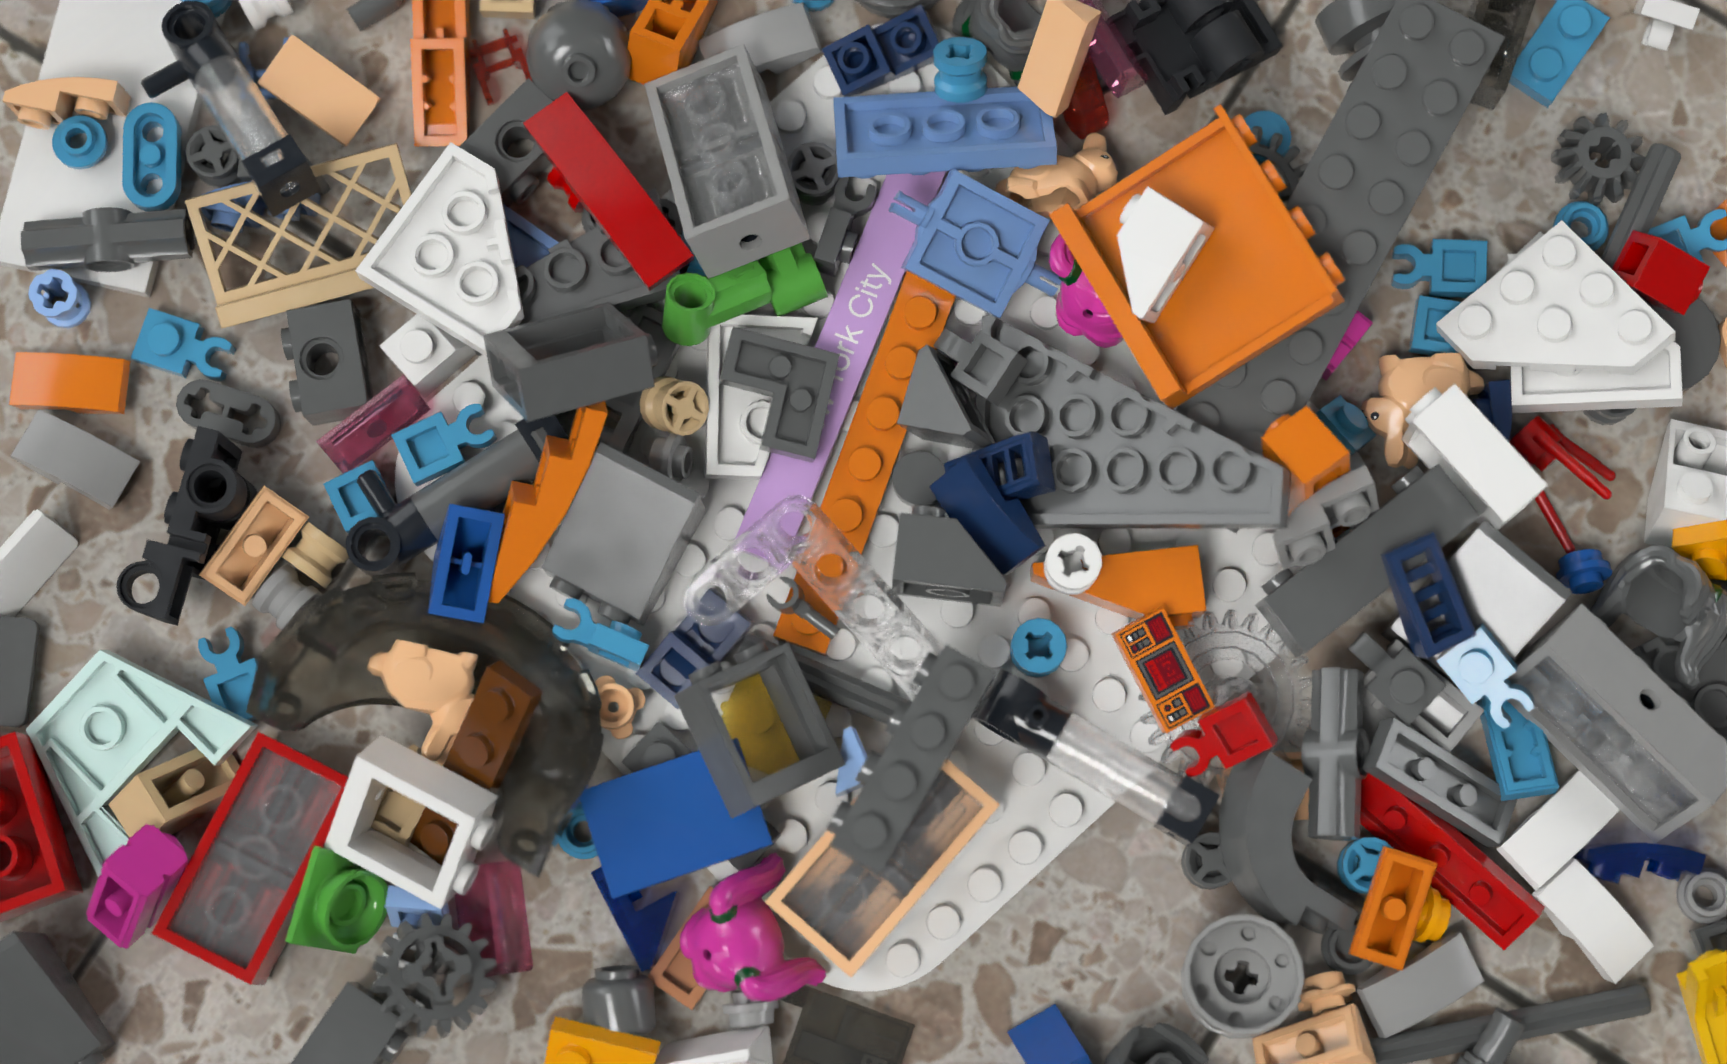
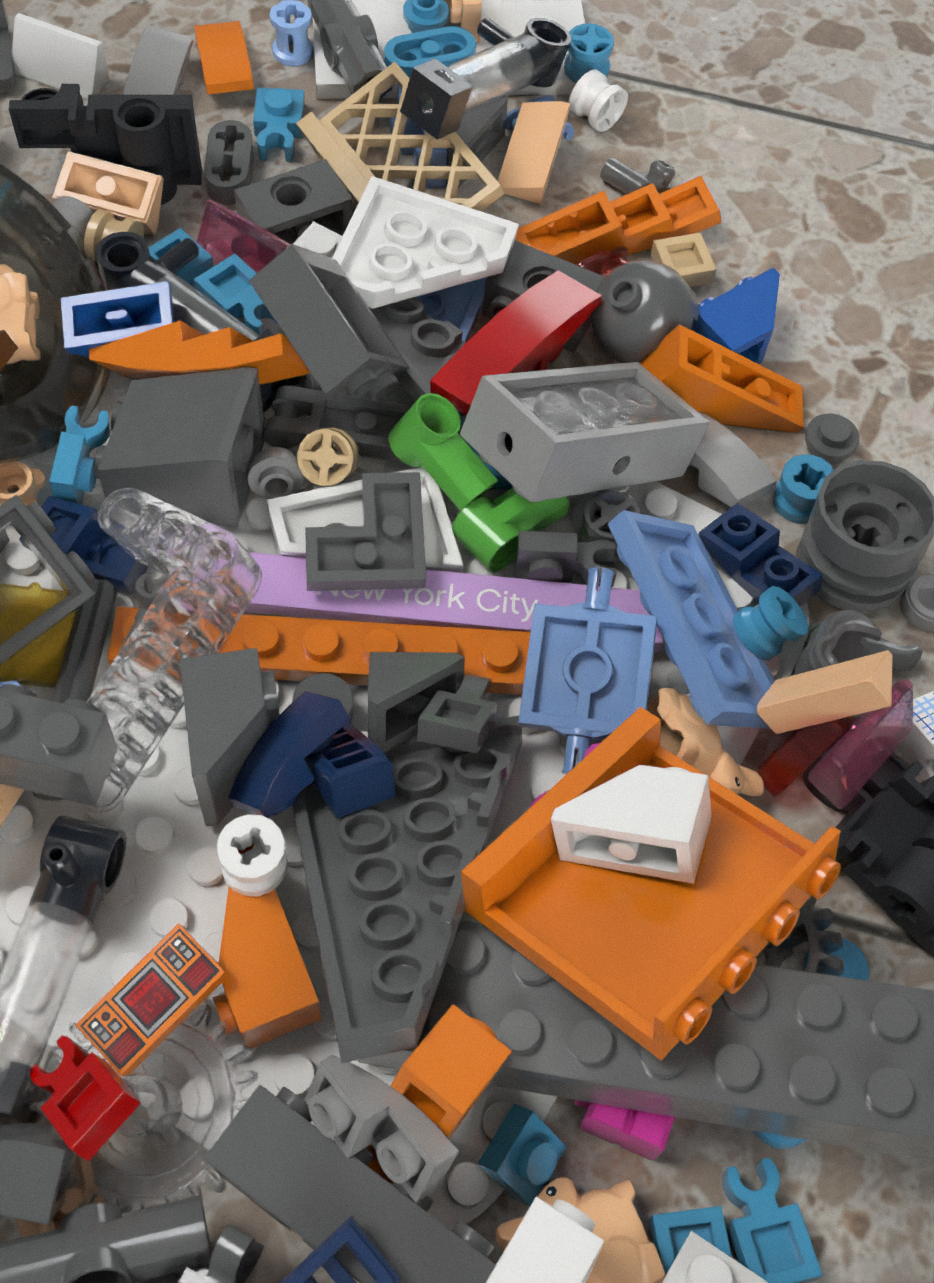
camera: 65 degrees right, 20 degrees down
(1037, 661) = (167, 881): dark azure wheel -> none

